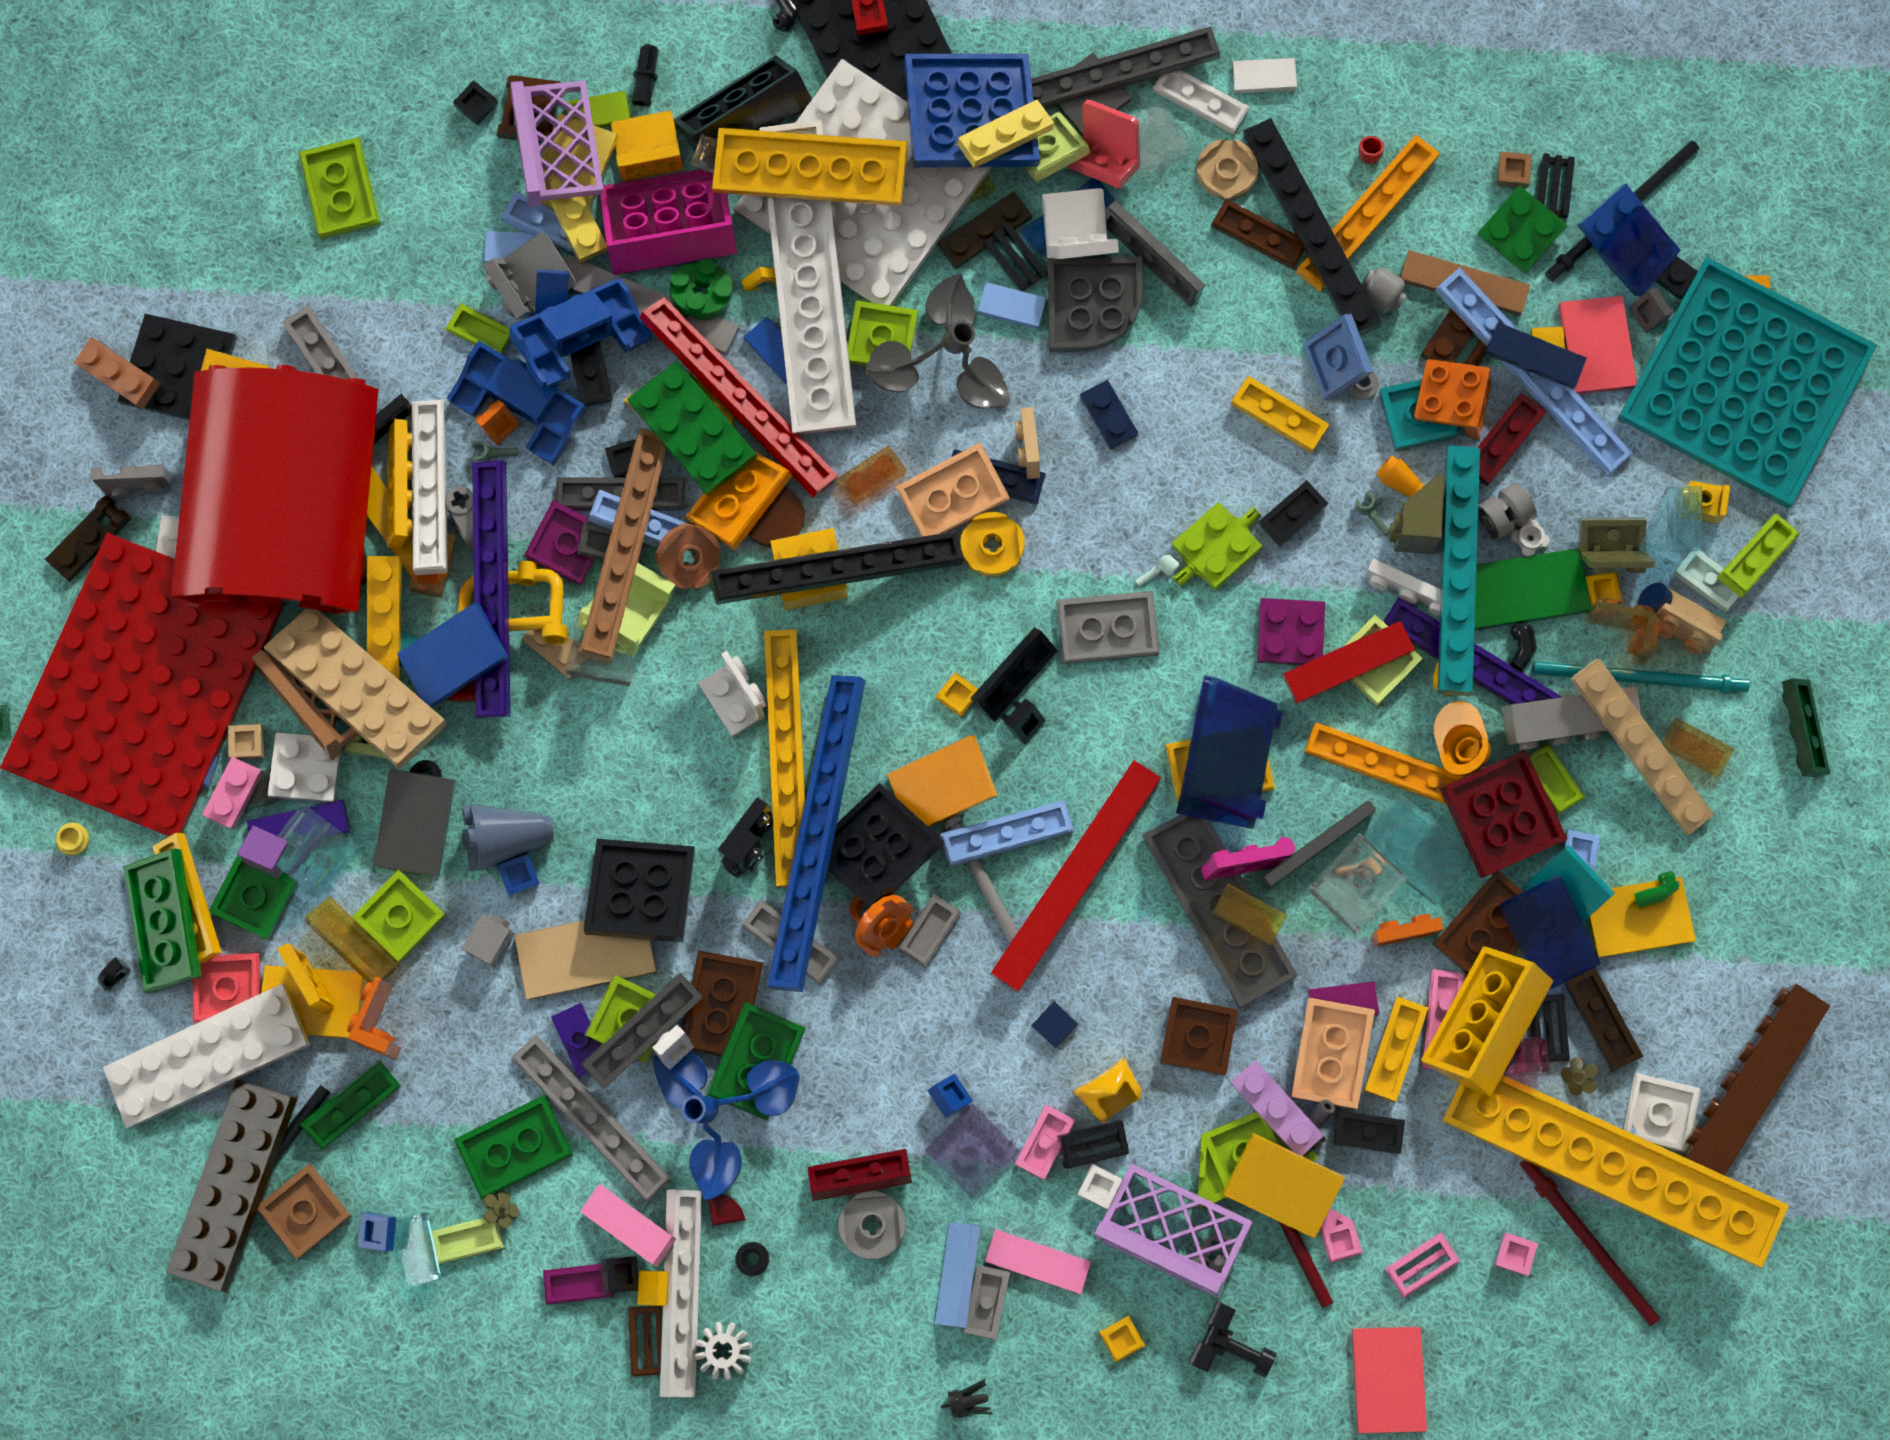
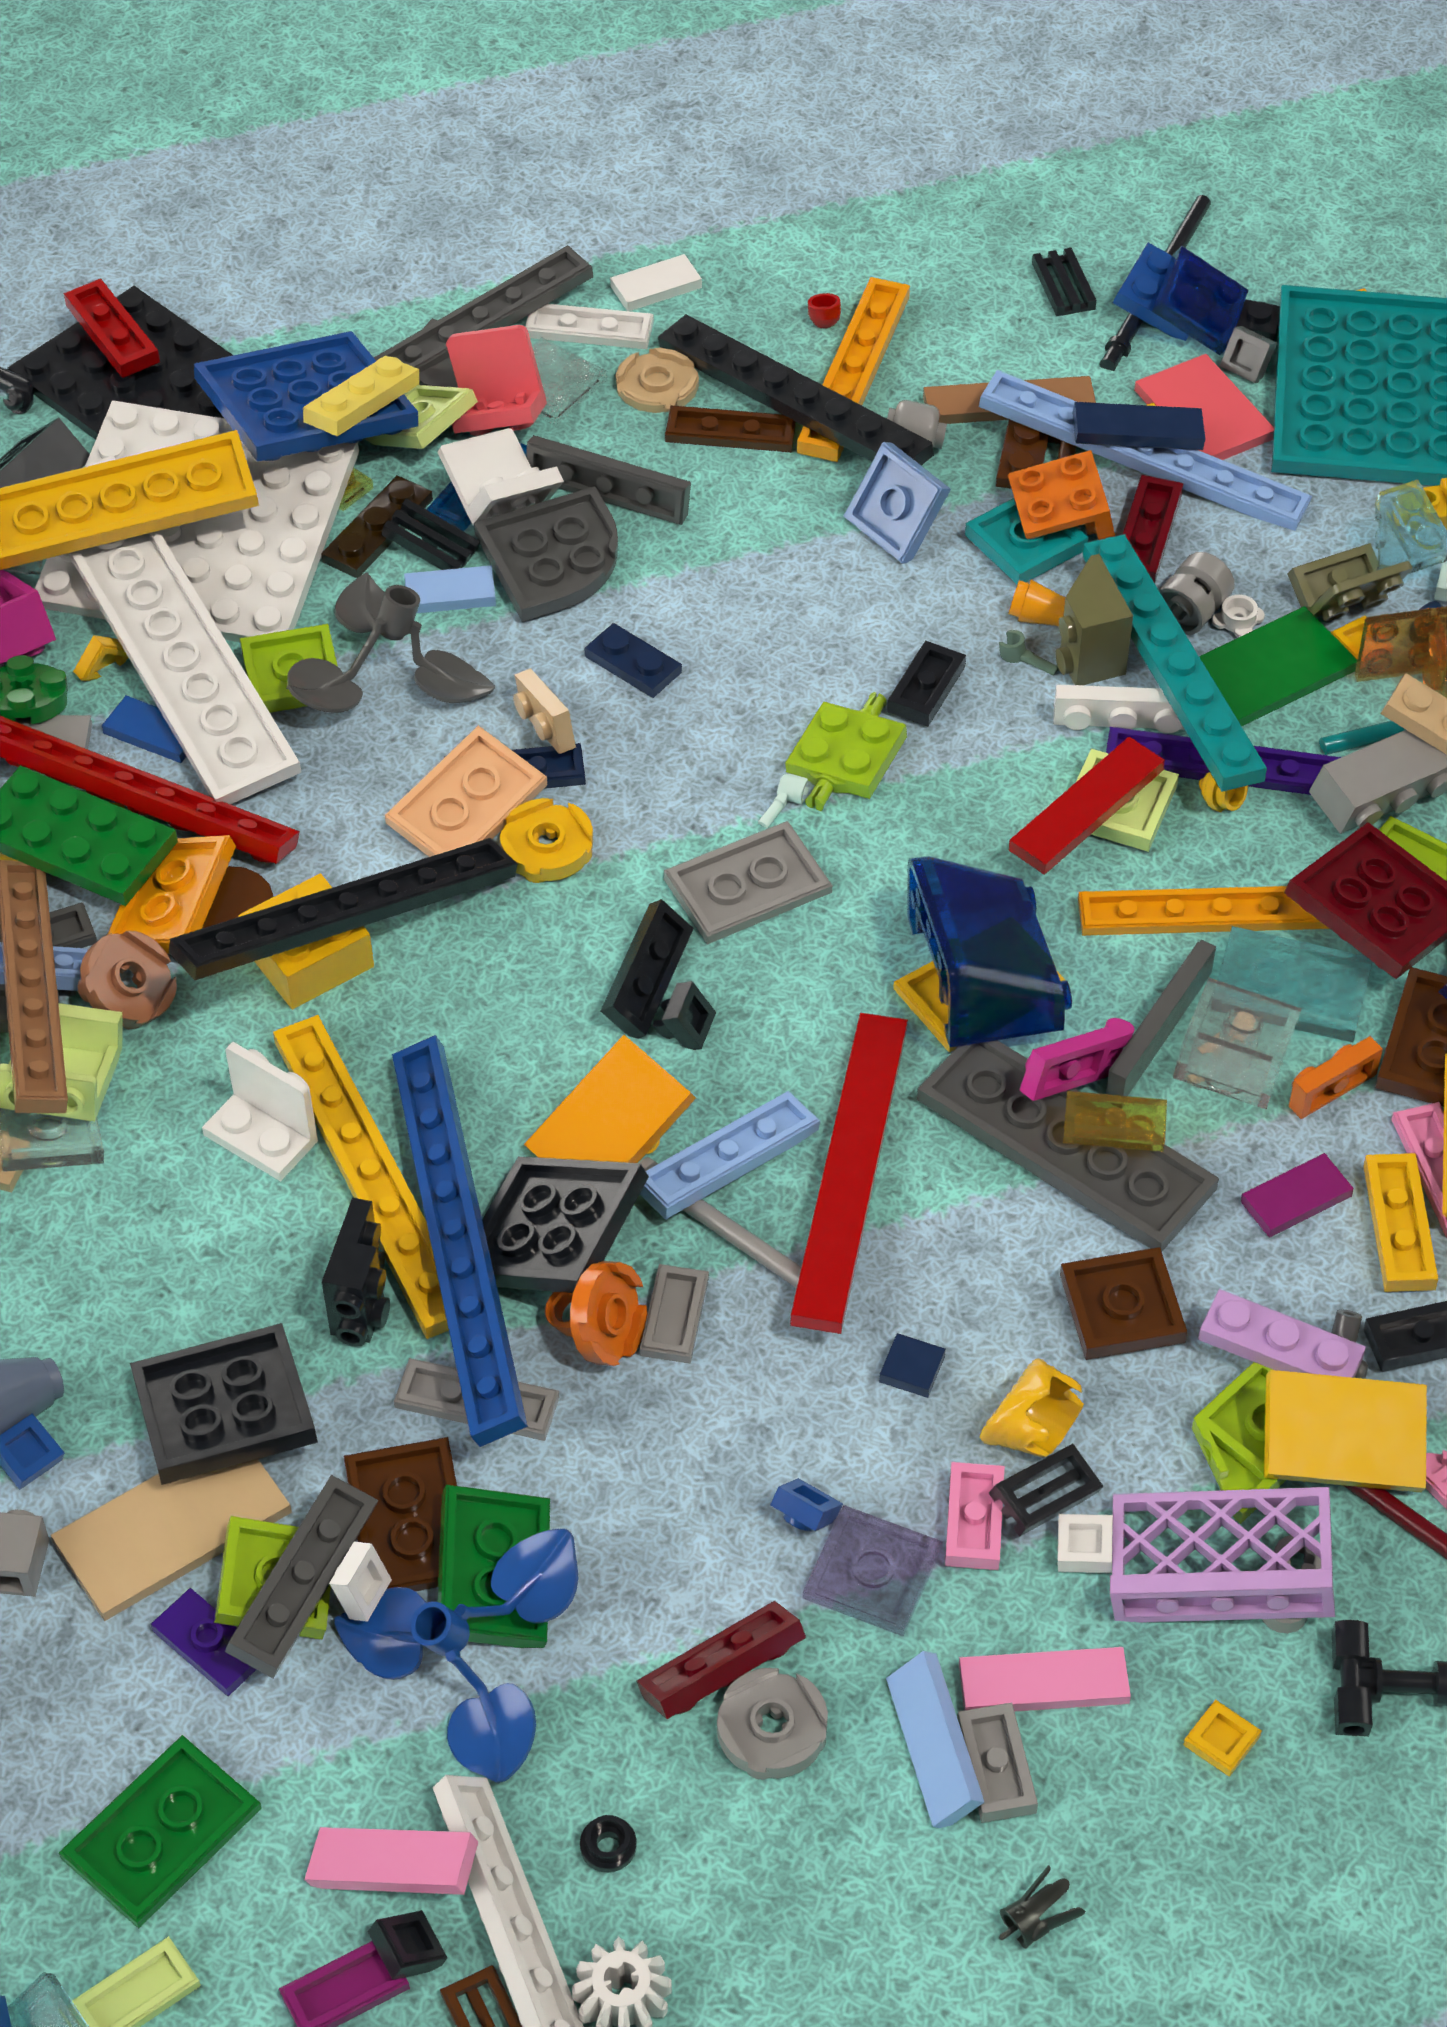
camera: 25 degrees left, 25 degrees down
(499, 1210) = (171, 1925): olive plant -> none
(591, 1118) = (271, 1743): light grey tile -> none
(652, 1288) = (468, 1938): yellow tile -> none
(725, 1210) = (535, 1793): dark red tile -> none
(871, 475) = (345, 821): clear orange plate -> none
(956, 694) = (579, 1023): yellow tile -> none
(1279, 414) = (853, 590): yellow plate -> none
(1290, 631) = (988, 806): magenta plate -> none
(1332, 1052) = (1318, 1249): light nougat plate -> none
(1365, 392) = (944, 532): light grey plate -> none
(1461, 738) = (1278, 832): light orange piece -> none
(1514, 169) = (1006, 278): medium nougat plate -> none
(1522, 229) = (1050, 328): green plate -> none
(1527, 645) = (1303, 728): black arm -> none

